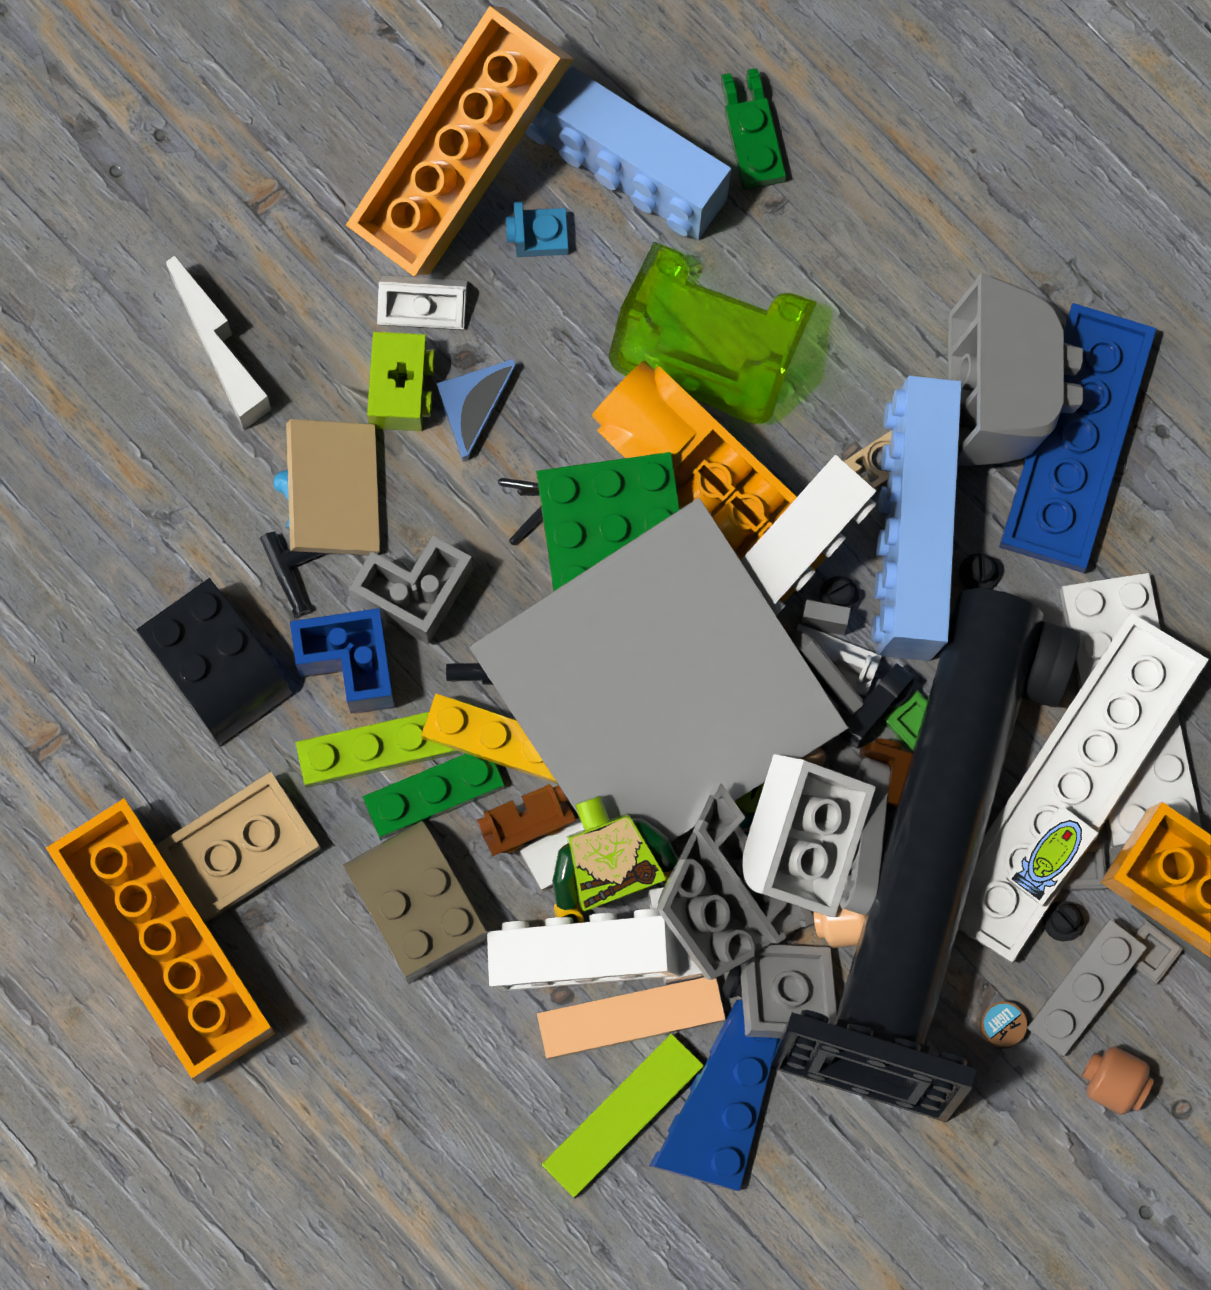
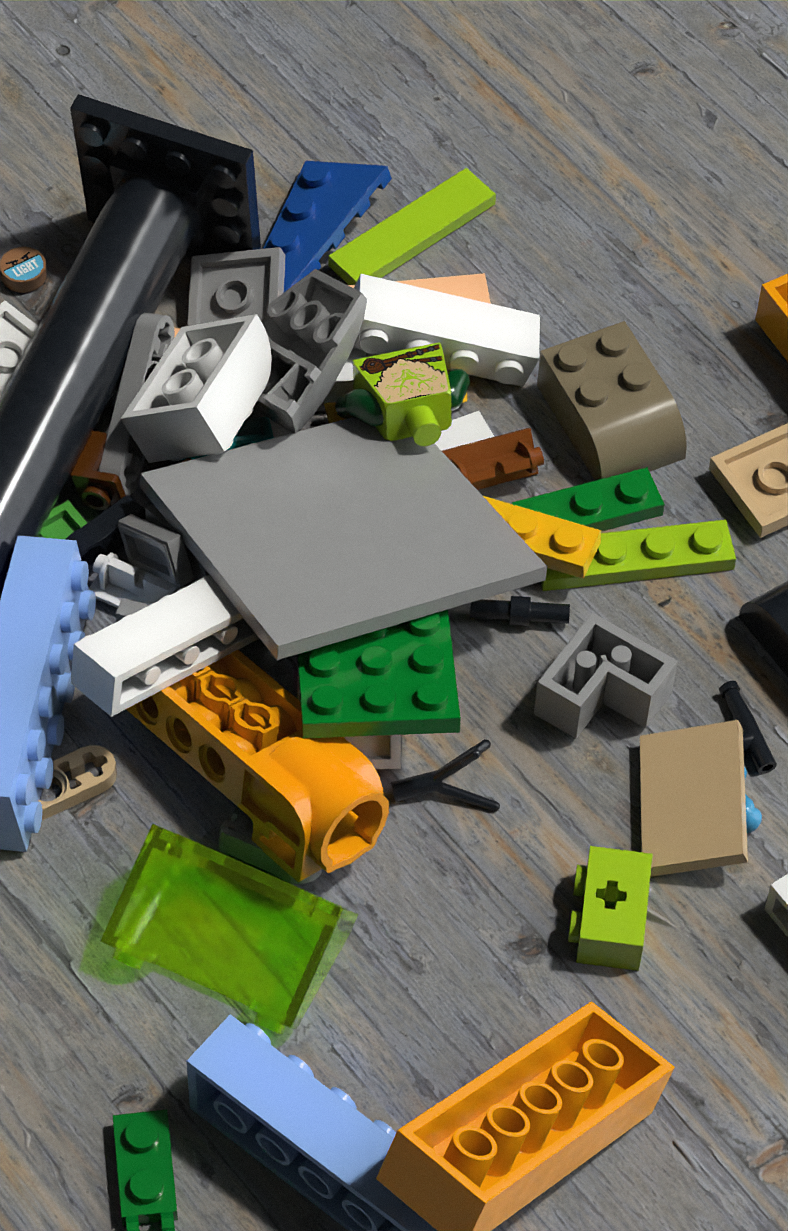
camera: 175 degrees left, 20 degrees down
(347, 644) = (690, 628): blue brick -> none
(422, 302) = (556, 999): white slope -> none
(471, 402) = (525, 890): tile -> none
(538, 231) = (430, 1075): dark azure bracket -> none

